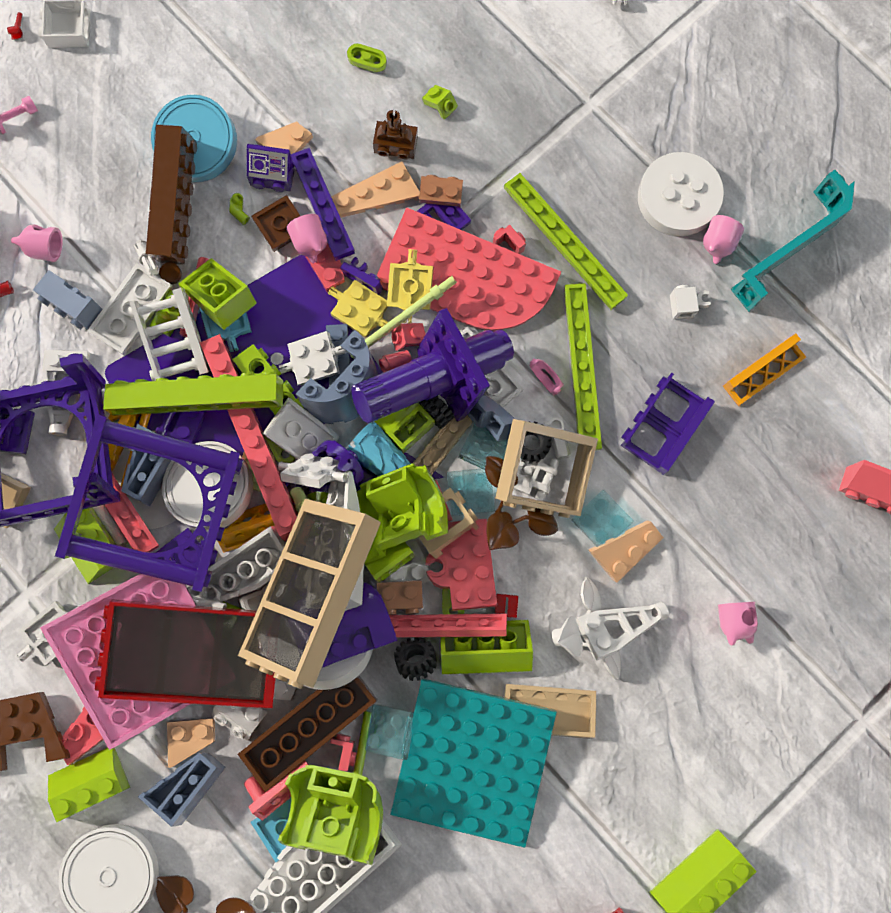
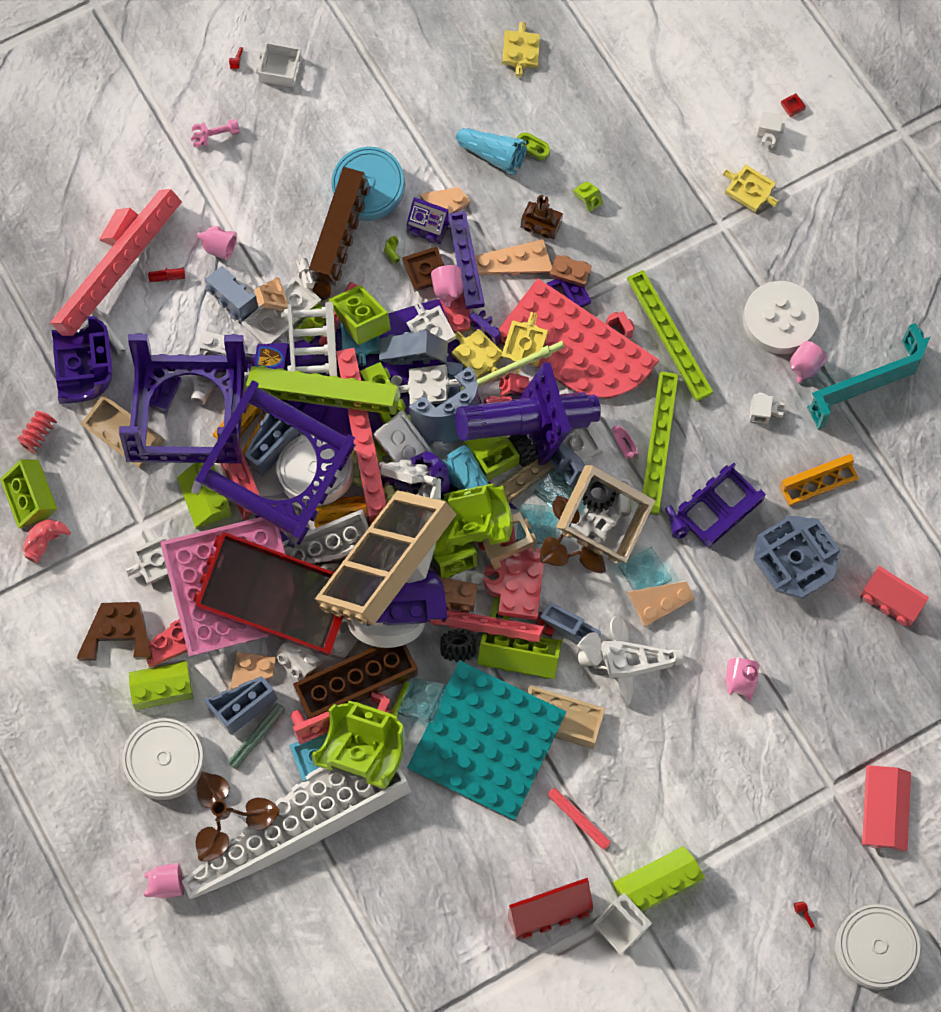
camera: 15 degrees right, 10 degrees down
(111, 293) = (271, 295): none -> light nougat wing
(127, 365) = (270, 355): none -> torso
(211, 817) = (255, 737): none -> sand green axle
(286, 319) = (413, 347): none -> sand blue wedge
(302, 293) = (432, 320): none -> white plate
(329, 69) = (496, 149): none -> medium azure cone
(535, 603) = (567, 623): none -> sand blue slope
(596, 827) = (586, 825): none -> coral axle
(613, 55) = (750, 188): none -> light yellow plate
(625, 458) = (678, 527): none -> dark purple cone
(787, 463) = (798, 538): none -> sand blue piece
(866, 872) = (801, 907): none -> red hand

